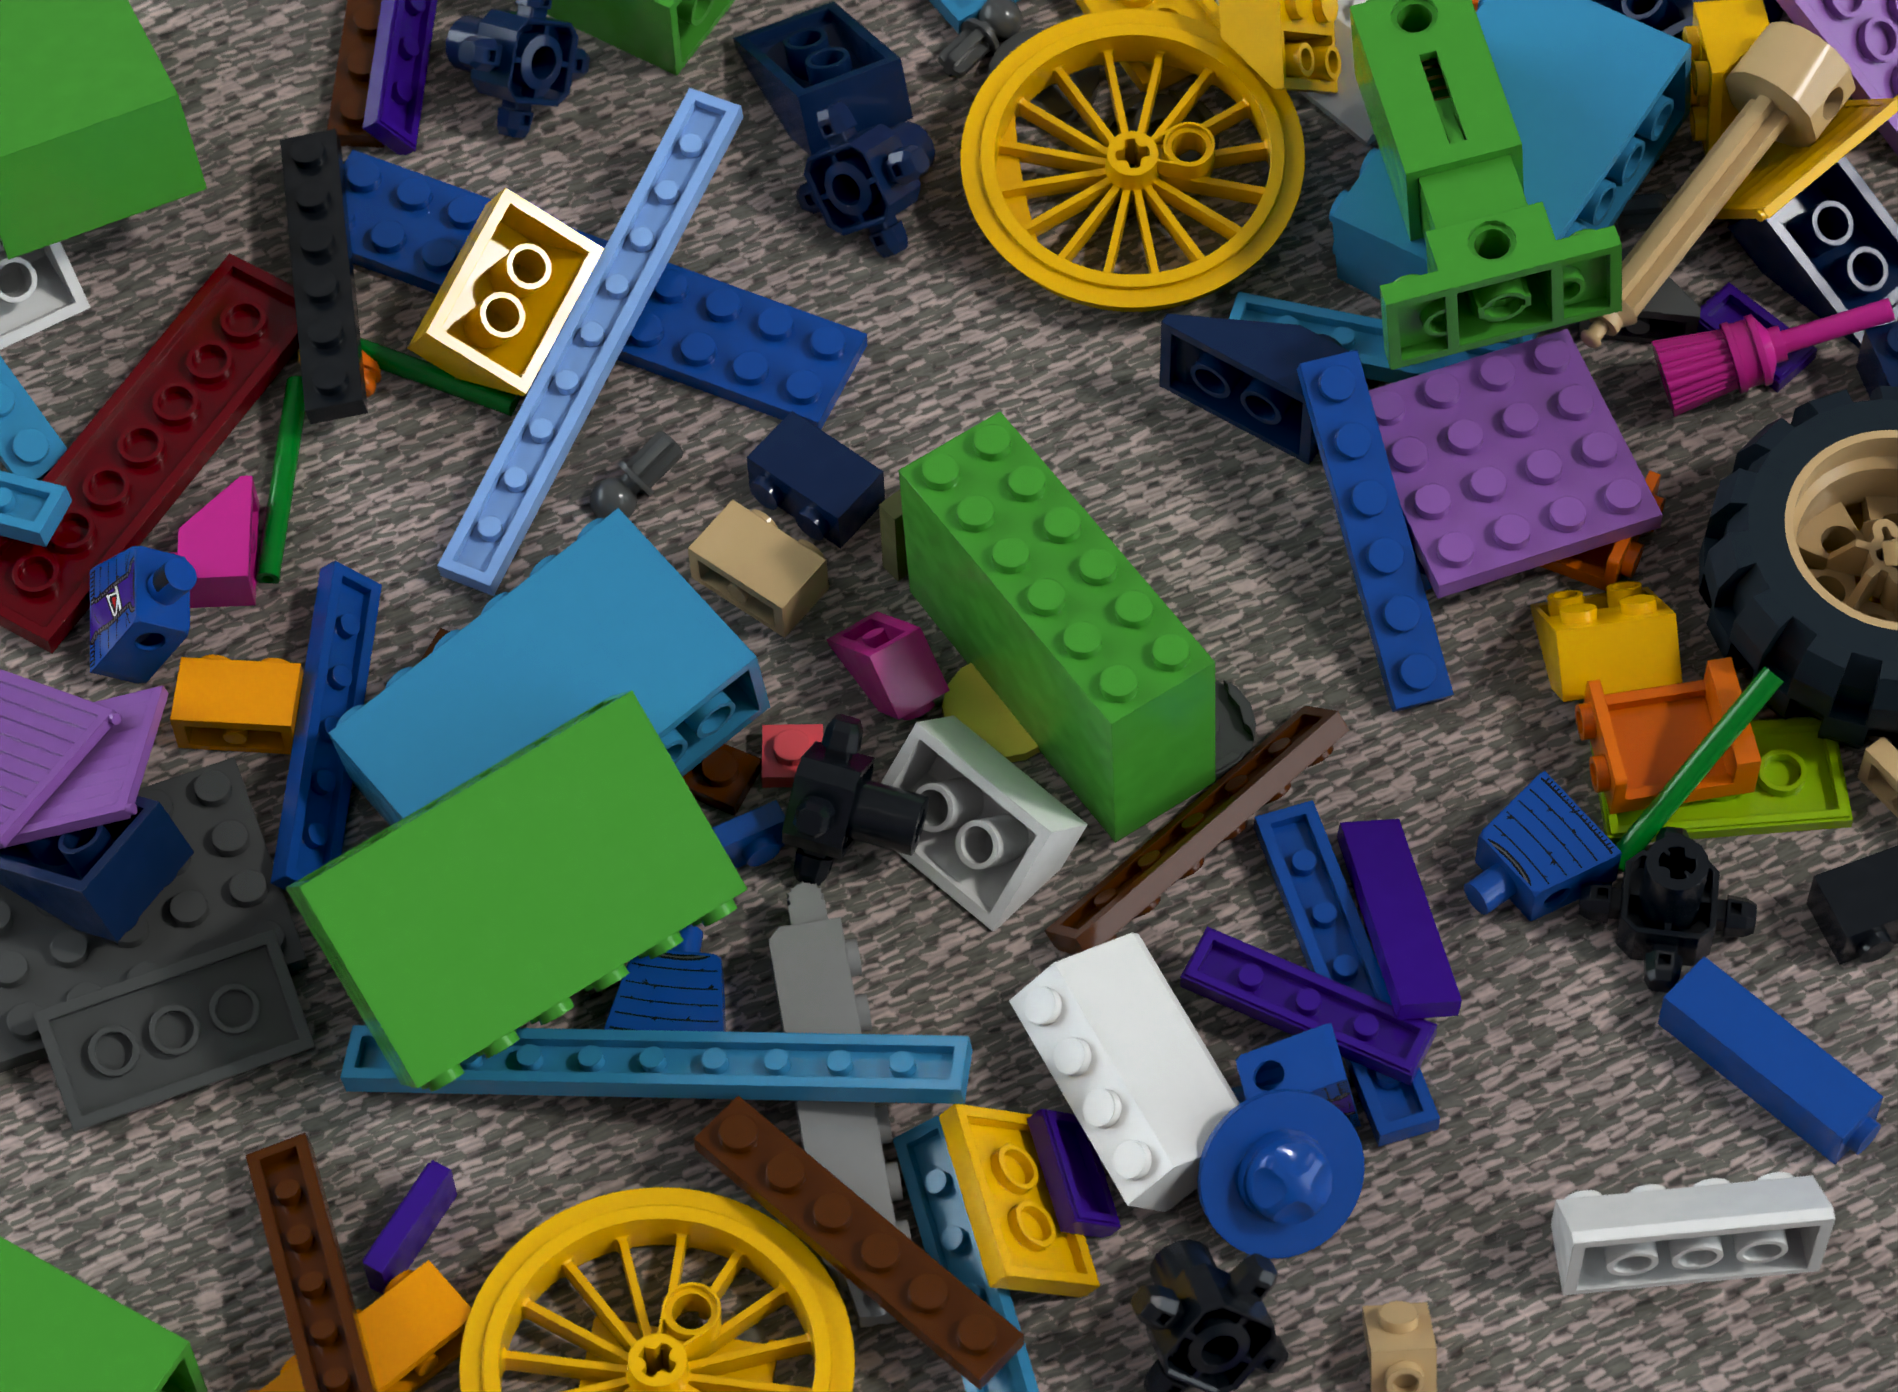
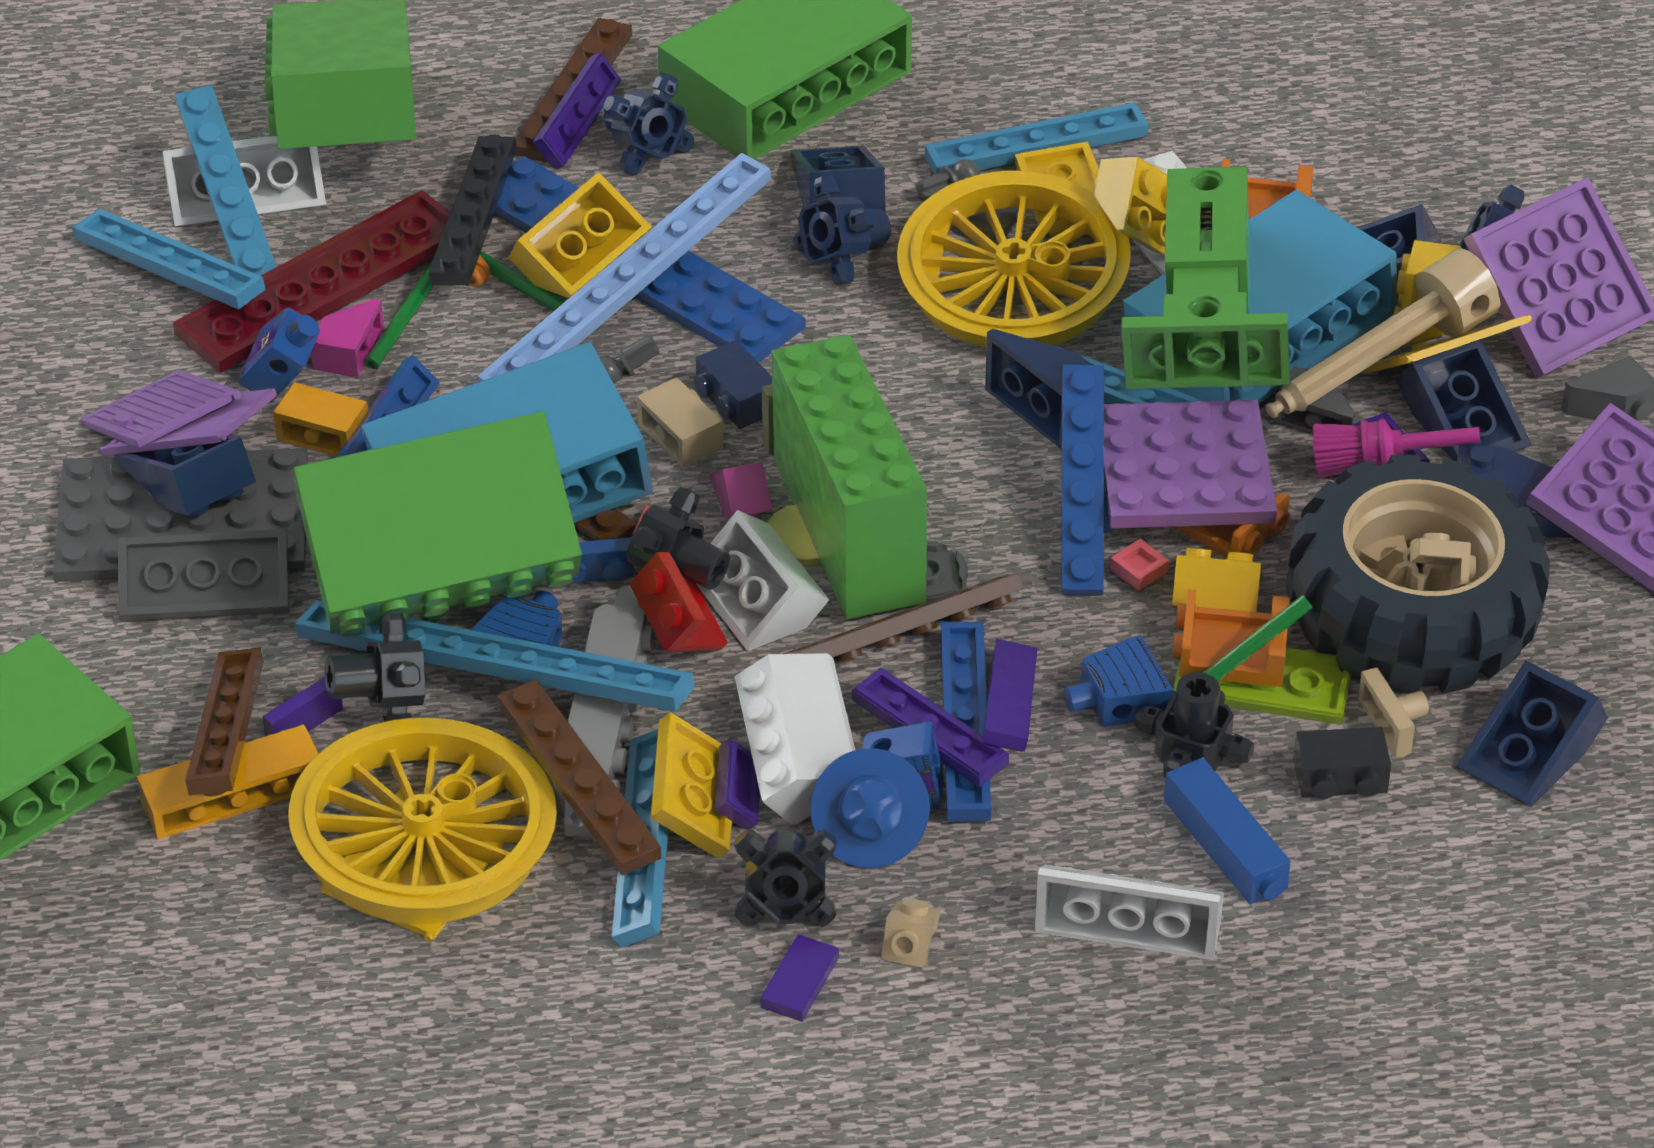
camera: 15 degrees right, 15 degrees down
(519, 1143) = (386, 674): none -> black piece
(886, 910) = (676, 607): none -> red bracket
(1488, 638) = (1139, 564): none -> coral plate

